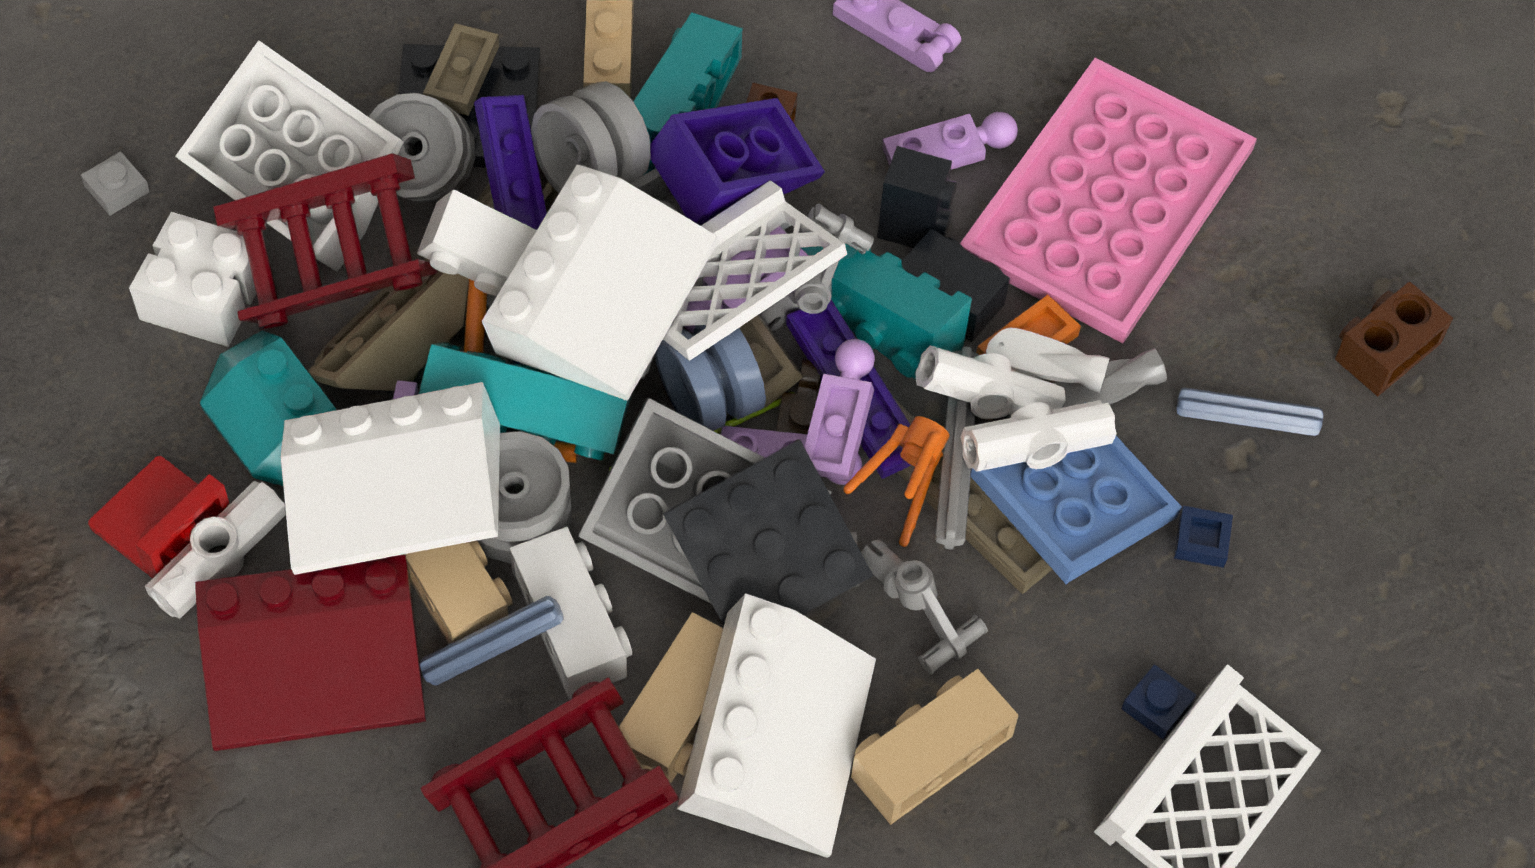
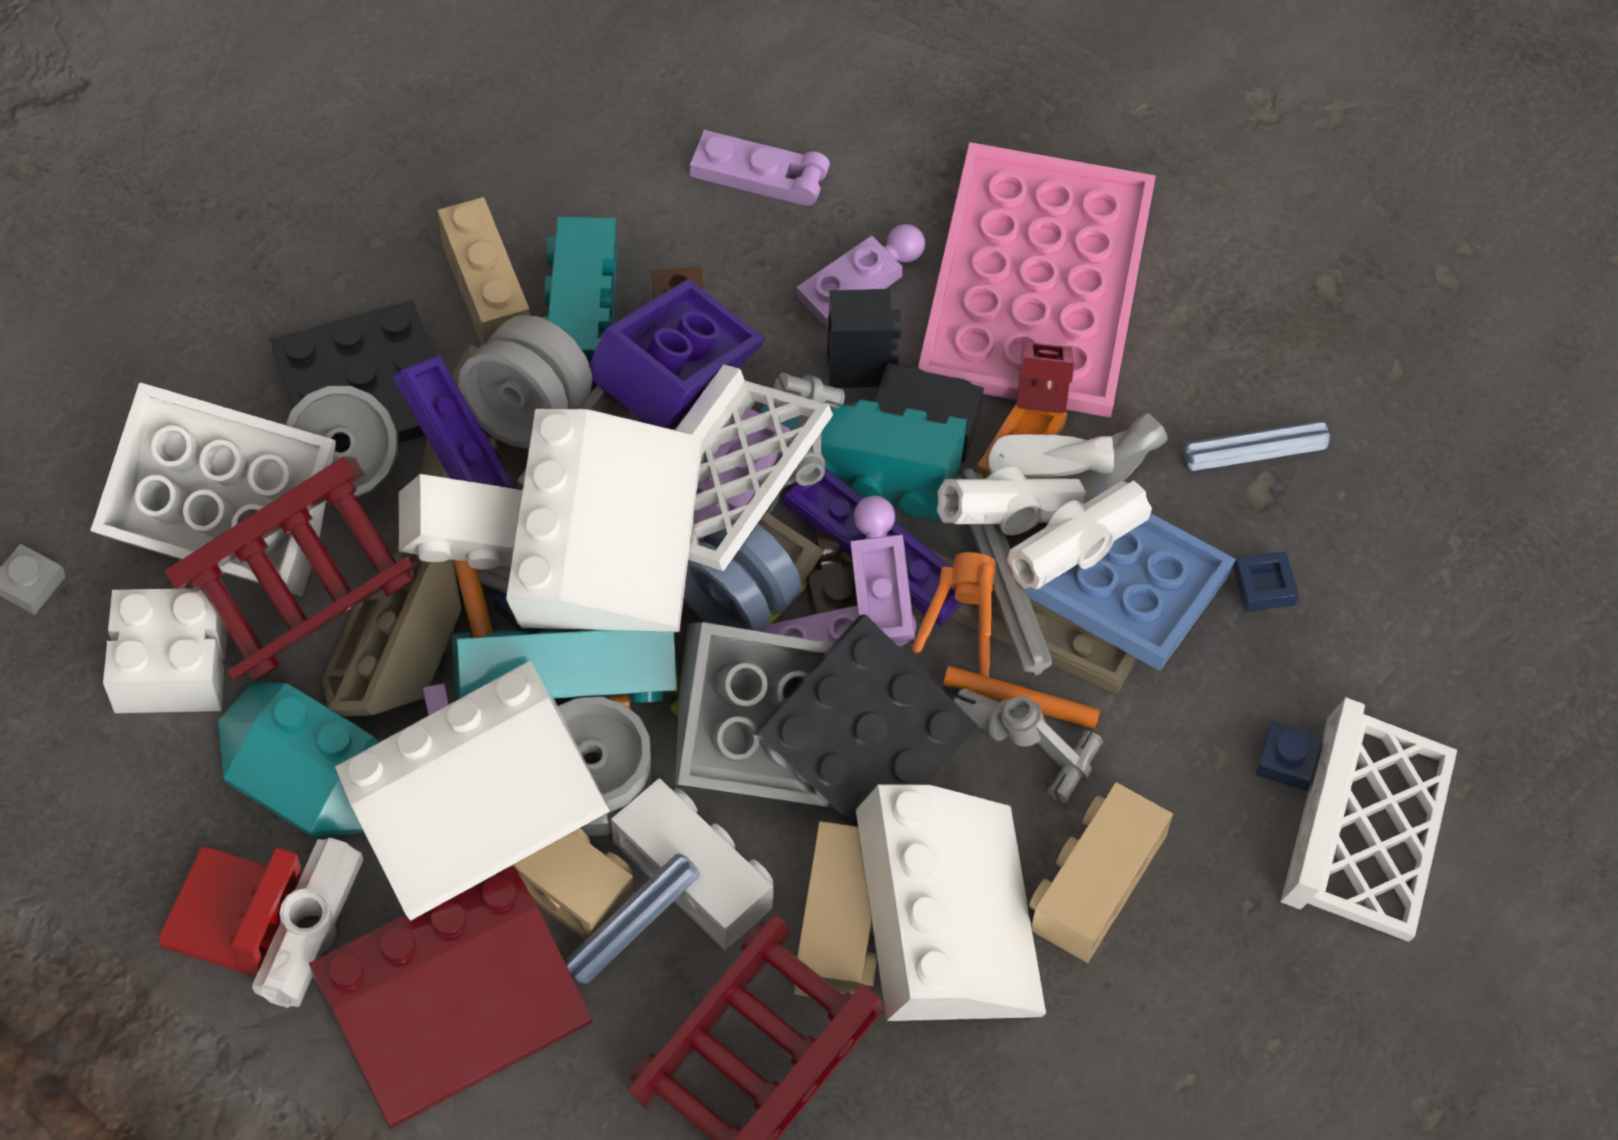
camera: 20 degrees left, 0 degrees up
(462, 67) = (349, 344): dark tan plate -> none
(941, 572) = (1000, 690): none -> orange bar
(1070, 285) = (1045, 377): none -> dark red slope
(1397, 342) = (1360, 330): reddish brown brick -> none

